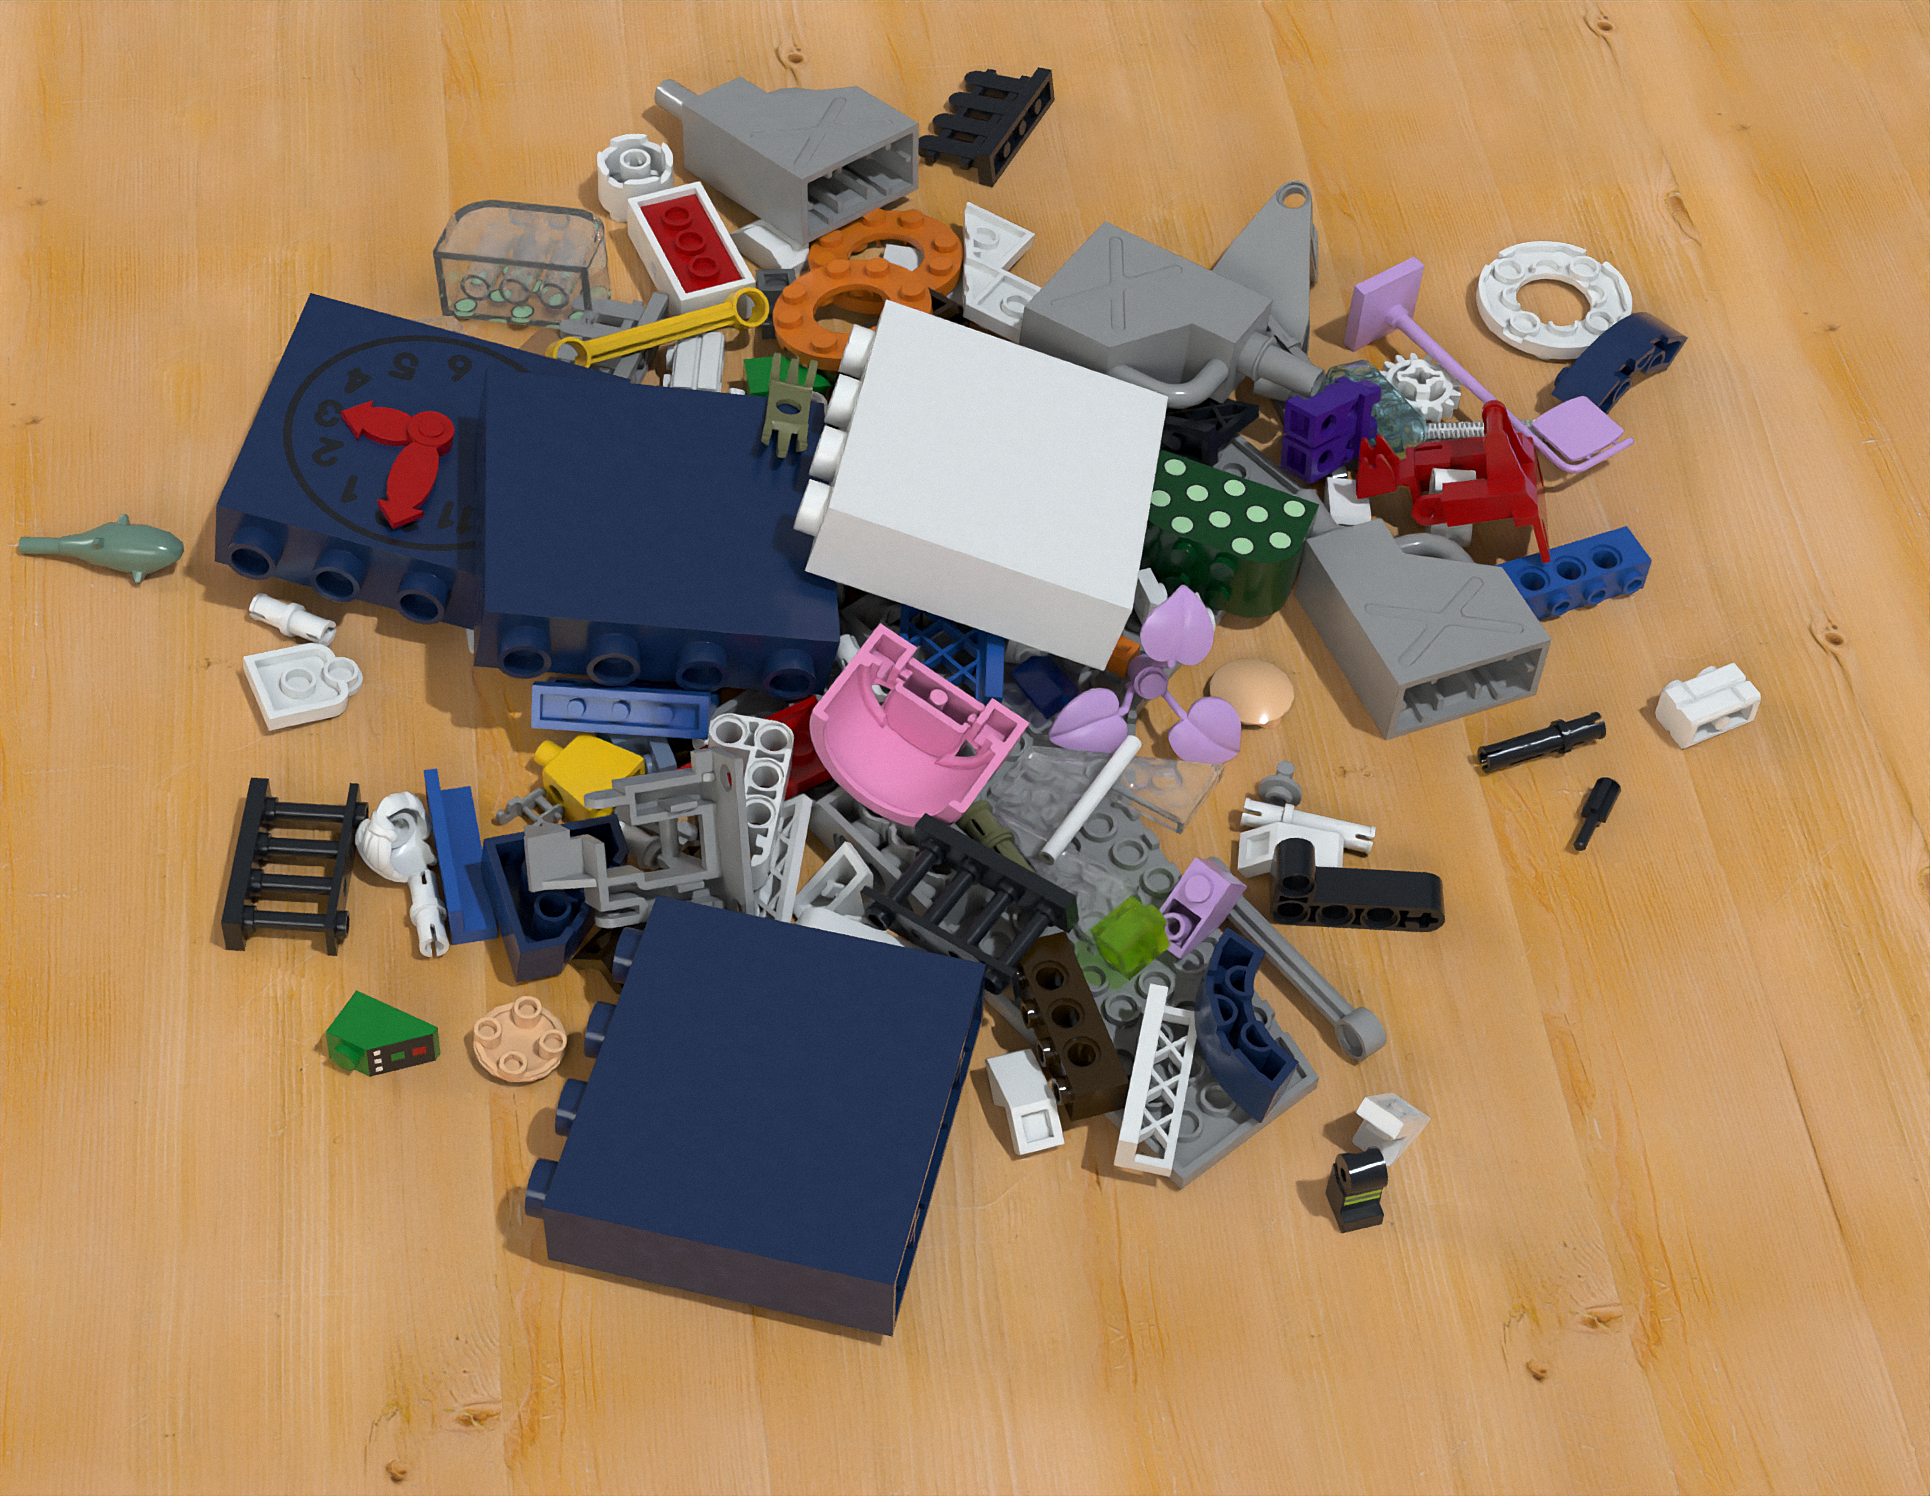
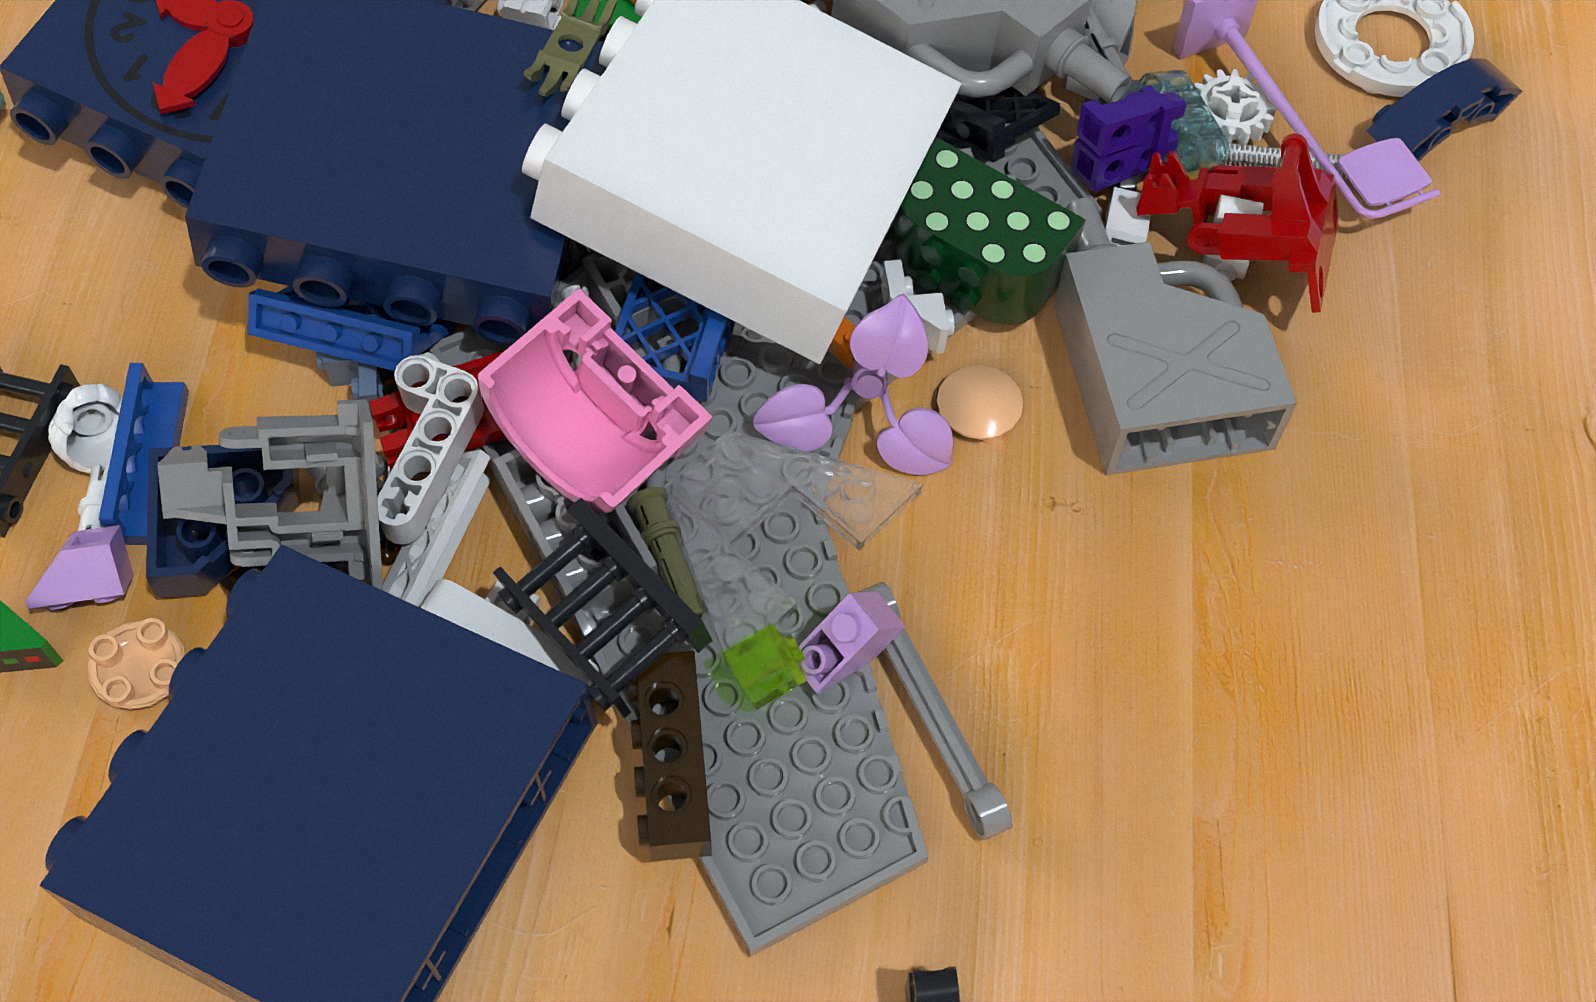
camera: 15 degrees right, 10 degrees up
(292, 619) = (82, 187): white pin -> none
(301, 684) = (67, 253): white plate -> none
(441, 962) = (85, 568): none -> lavender slope
(520, 807) = (231, 411): light grey piece -> none
(583, 768) = (295, 384): yellow torso -> none
(837, 884) = (490, 548): white slope -> none
(1028, 1100) = (612, 826): white slope -> none
(1044, 685) = (763, 367): clear blue piece -> none
(1090, 800) = (769, 502): white piece -> none
(1143, 1074) = (732, 829): white fence -> none
(1232, 1041) = (837, 802): dark blue brick -> none
(1258, 846) = (977, 588): white slope -> none
(1281, 787) = (978, 516): light grey plate -> none
(1287, 814) = (996, 560): white pin -> none
(1350, 896) = (1021, 649): black beam -> none
(1389, 1125) = (992, 924): white slope -> none
(1557, 737) = (1285, 504): black pin -> none
(1580, 573) = (1347, 327): blue brick -> none
(1597, 809) = (1307, 592): black axle -> none
(1707, 704) = (1453, 492): white brick -> none

